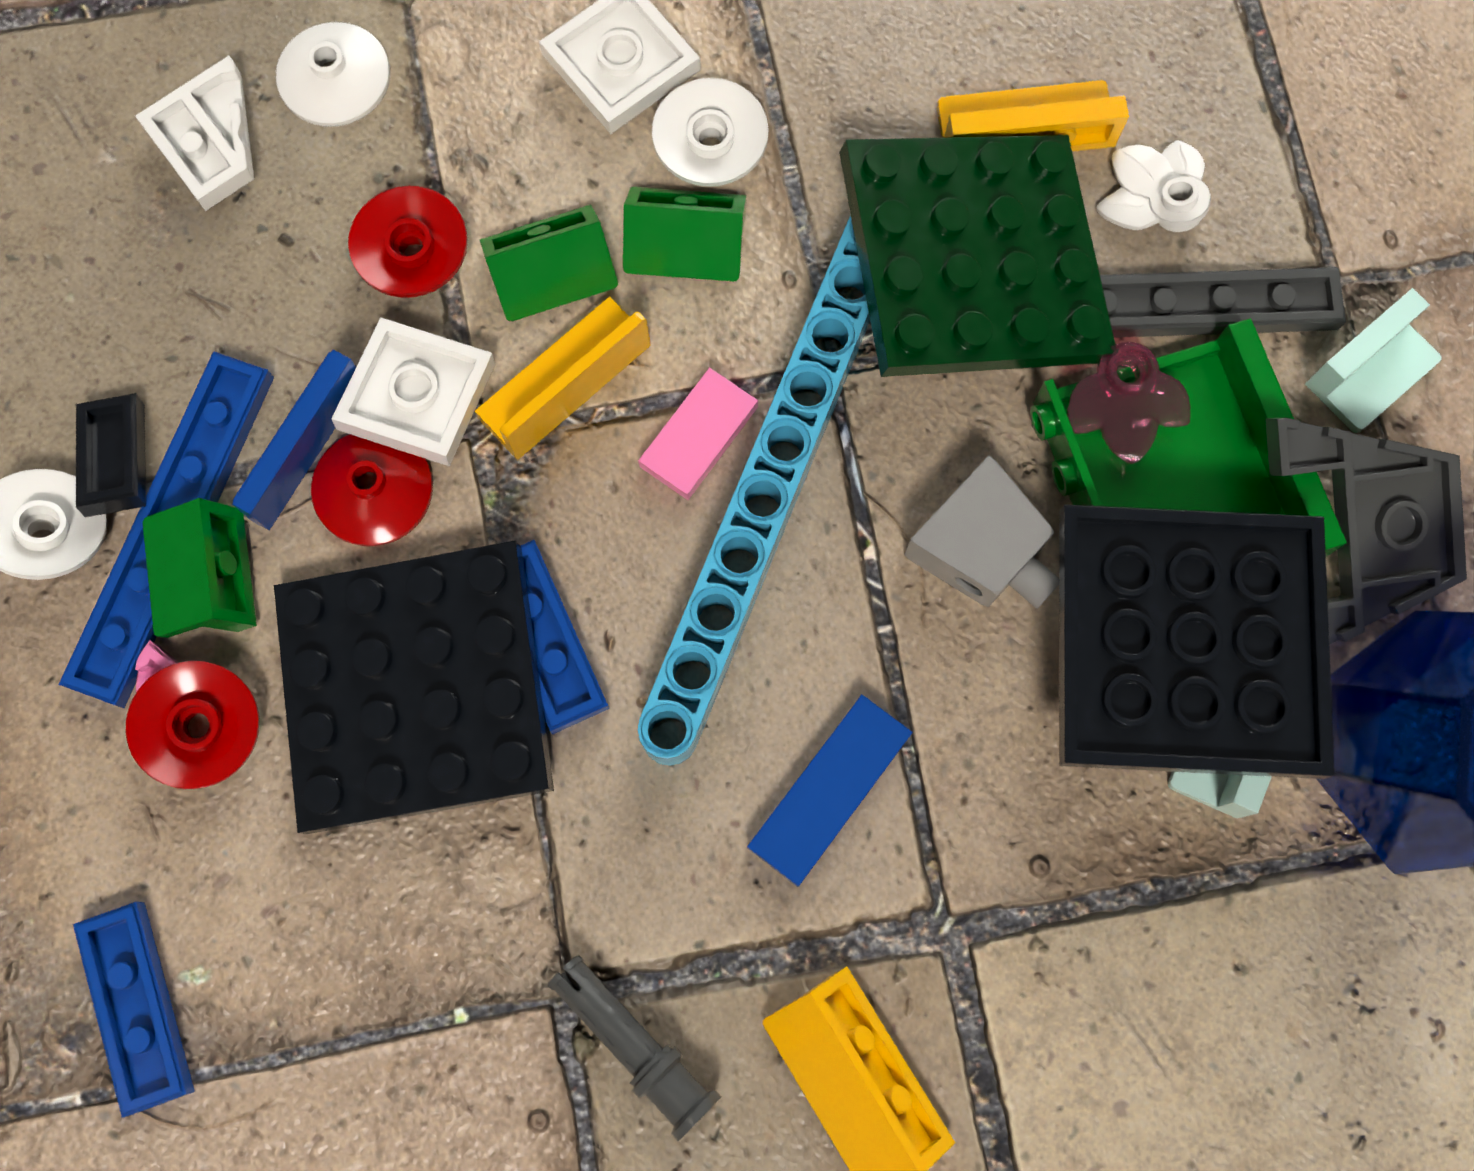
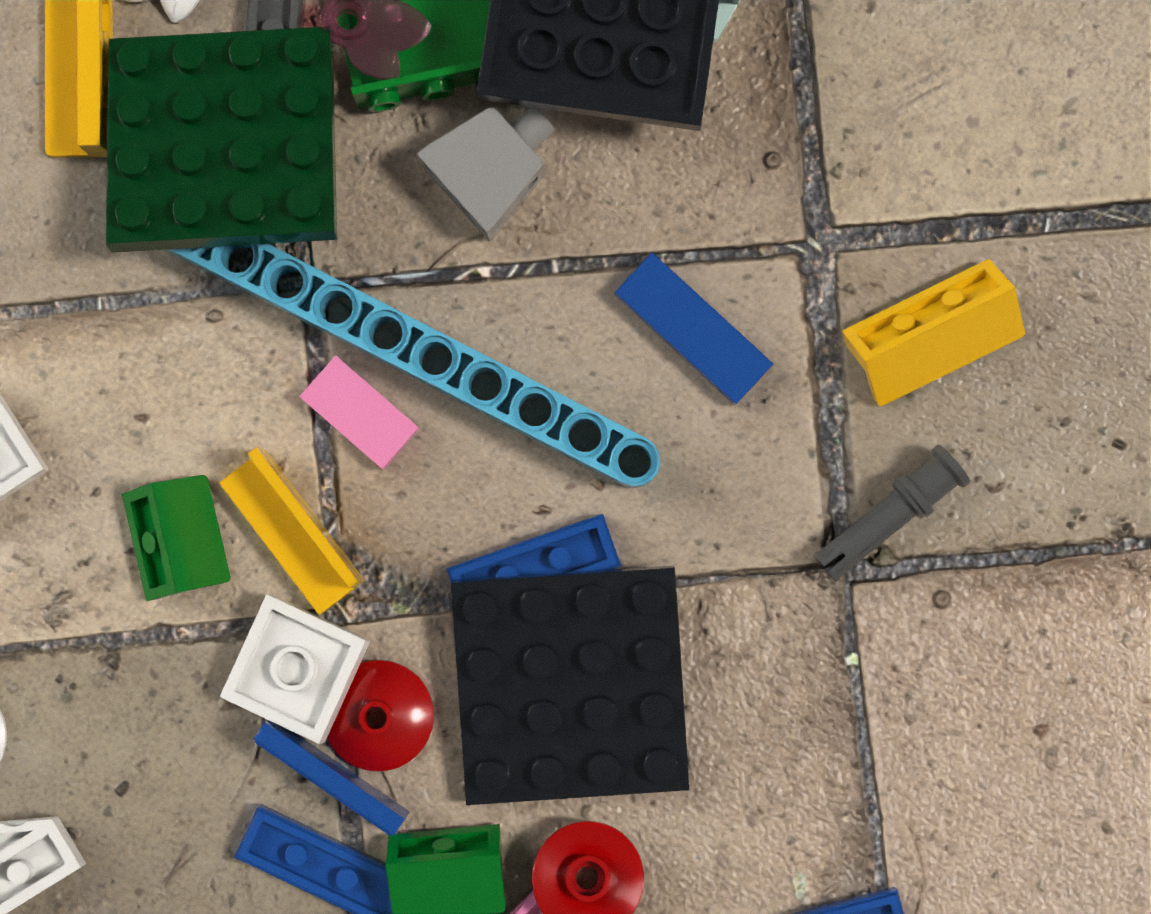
camera: 85 degrees left, 10 degrees up
(403, 219) = (117, 672): red dish -> none
(683, 233) = (160, 407): green panel -> none
(704, 111) = (36, 370): white dish -> none

